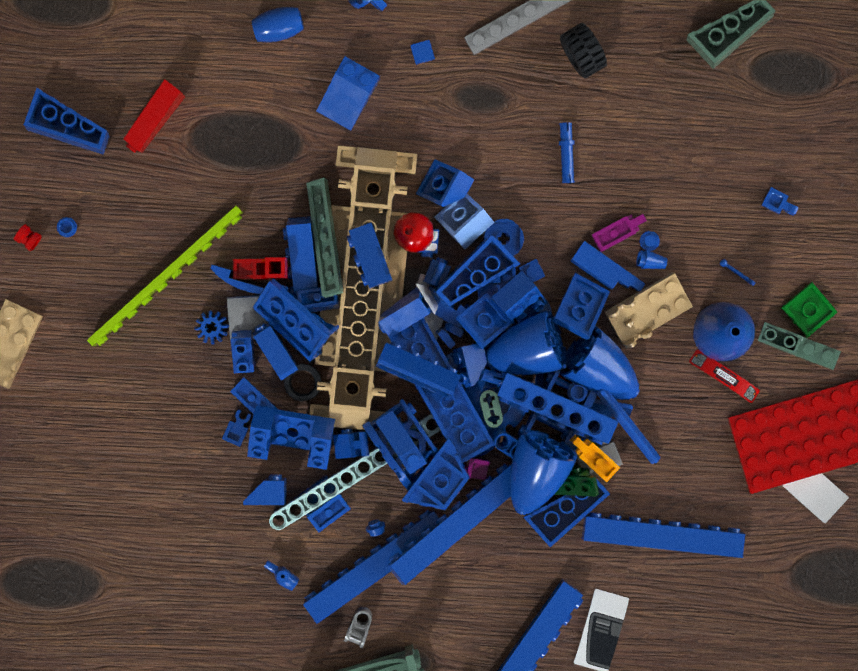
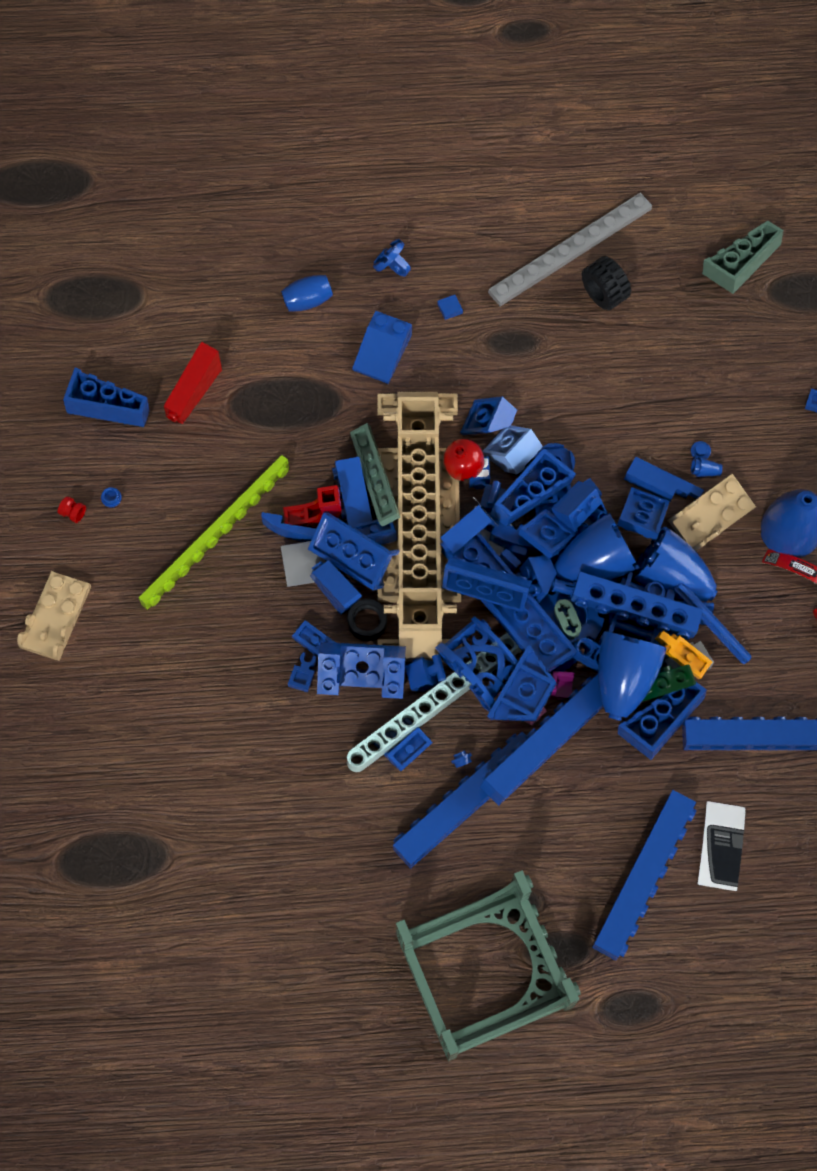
camera: 10 degrees left, 20 degrees down
(210, 320) = (264, 569): blue gear -> none
(242, 351) = (302, 594): blue hips -> none
(270, 492) = (341, 730): blue slope -> none
(282, 575) = (367, 819): blue piece -> none
(358, 630) = (457, 868): light grey piece -> none
(369, 256) = (424, 477): blue wedge -> none
(400, 442) = (479, 655): blue slope -> none
(567, 152) = (603, 373): blue pin -> none
(617, 231) = (667, 444): magenta hinge -> none
(724, 263) = (778, 464): blue hinge -> none

